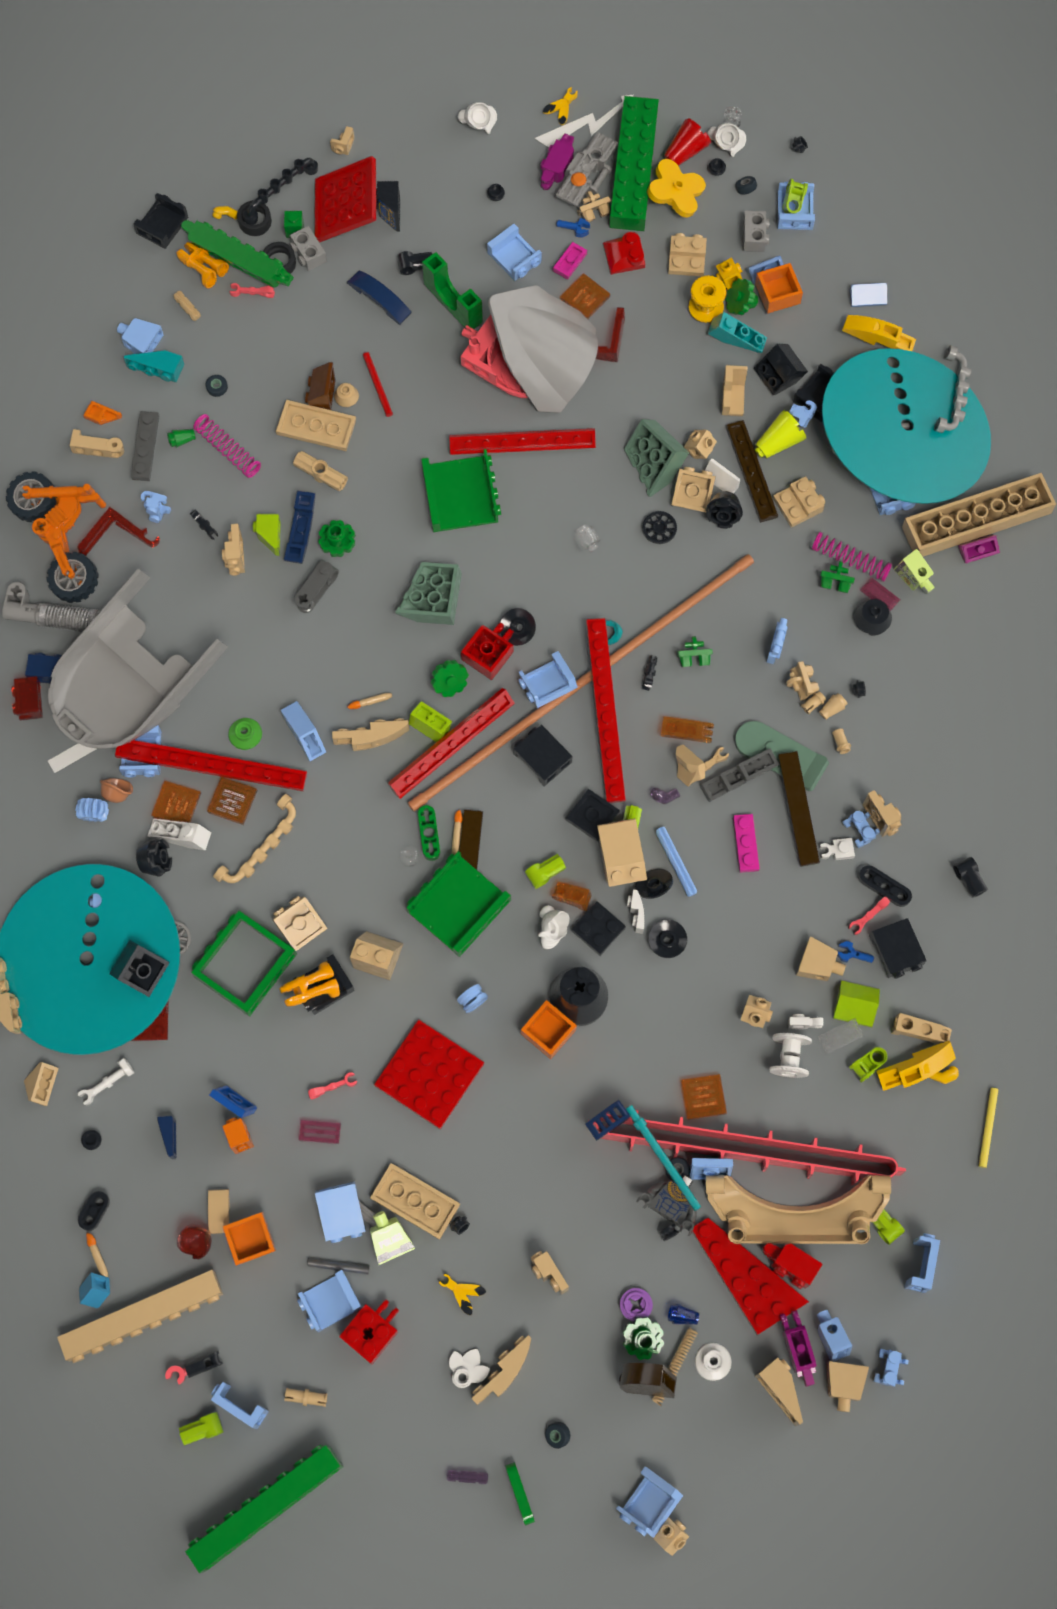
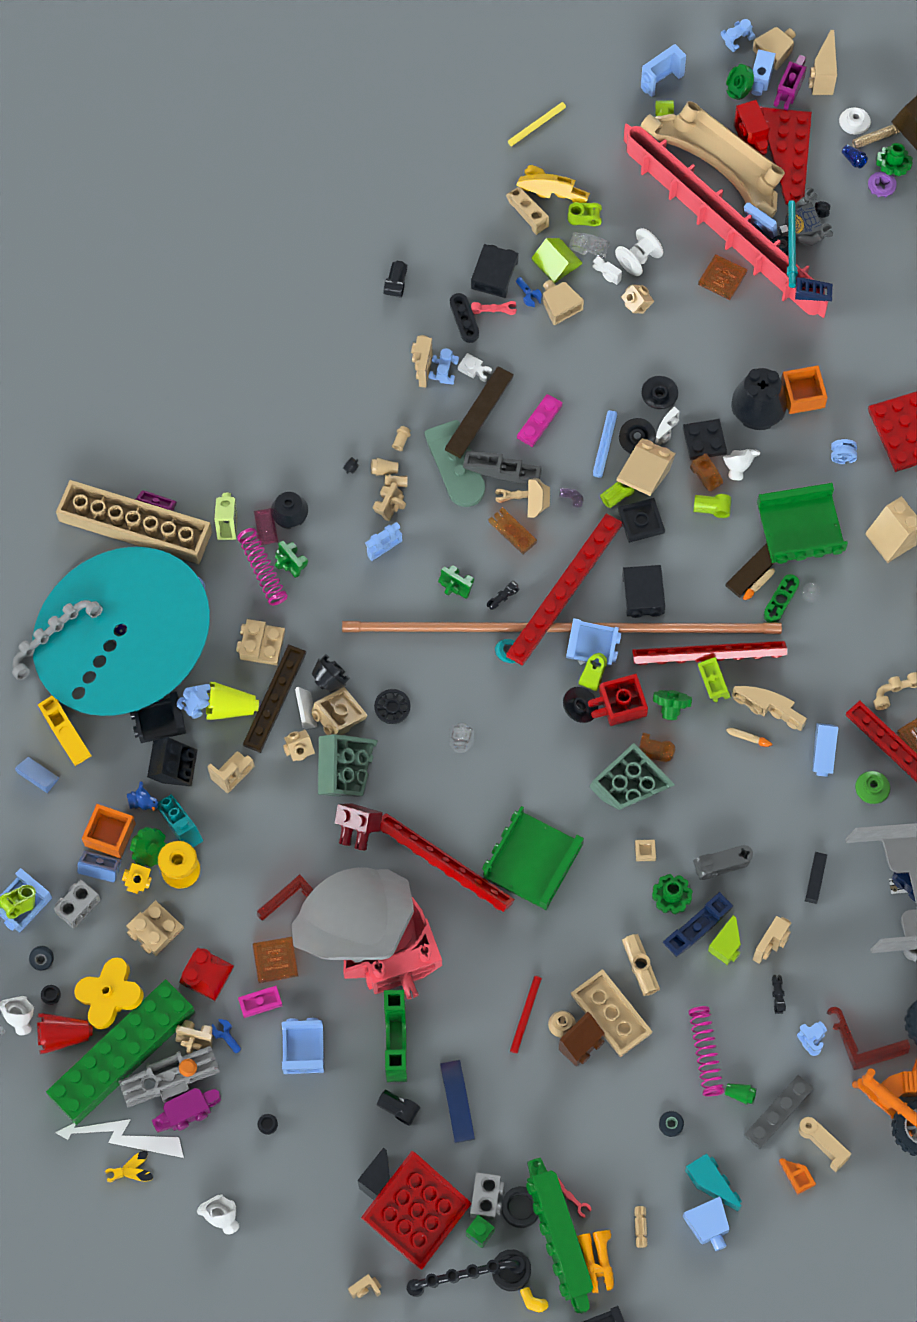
camera: 140 degrees left, 5 degrees down
(237, 628) = (816, 877): none -> black piece
(382, 558) = (645, 850): none -> tan tile
(433, 635) = (657, 750): none -> clear orange leg
(528, 658) = (592, 674): none -> lime piece
(608, 418) = (361, 819): none -> dark red brick
(778, 329) = (142, 799): none -> blue animal
(844, 1310) = (740, 81): none -> green plate

